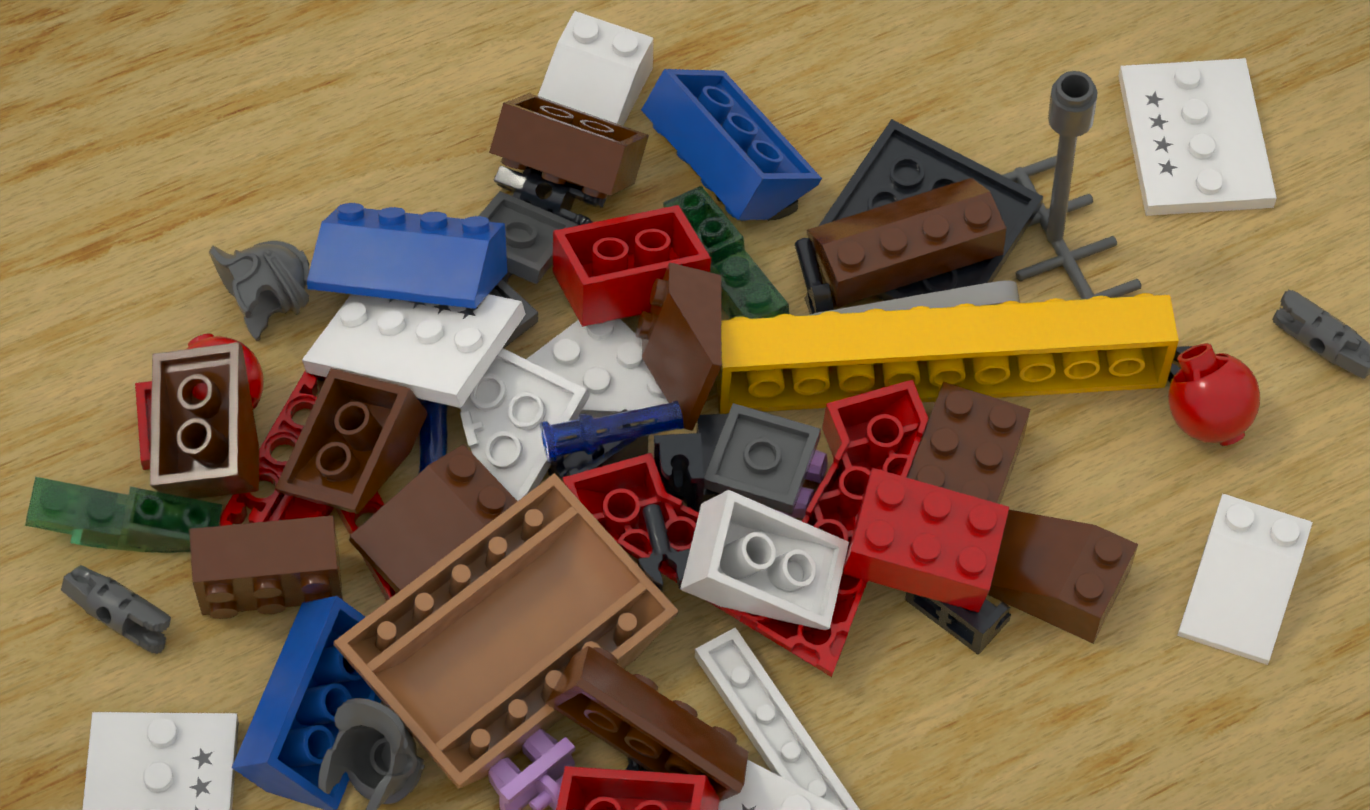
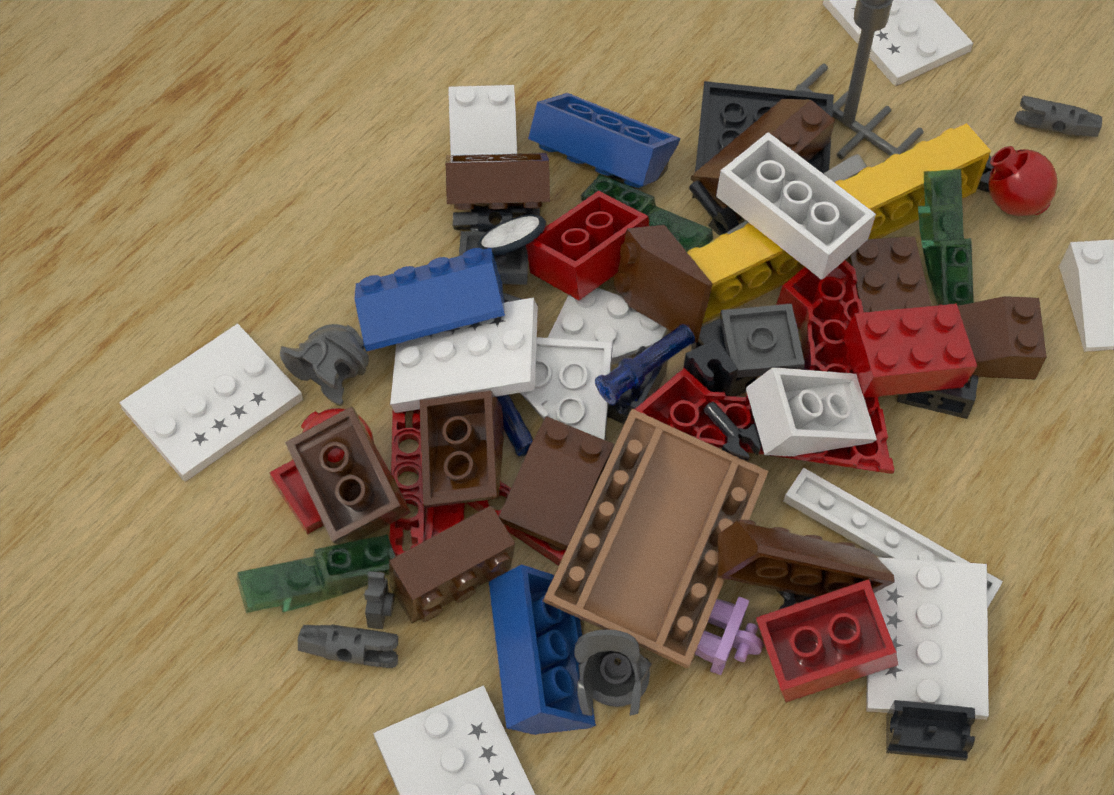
camera: 25 degrees left, 0 degrees up
(117, 278) = (211, 402): none -> white plate
(171, 573) = (379, 600): none -> dark grey plate
(545, 217) = (512, 234): none -> white wheel
(876, 312) = (795, 205): none -> white brick
(1069, 427) = (942, 238): none -> clear green slope

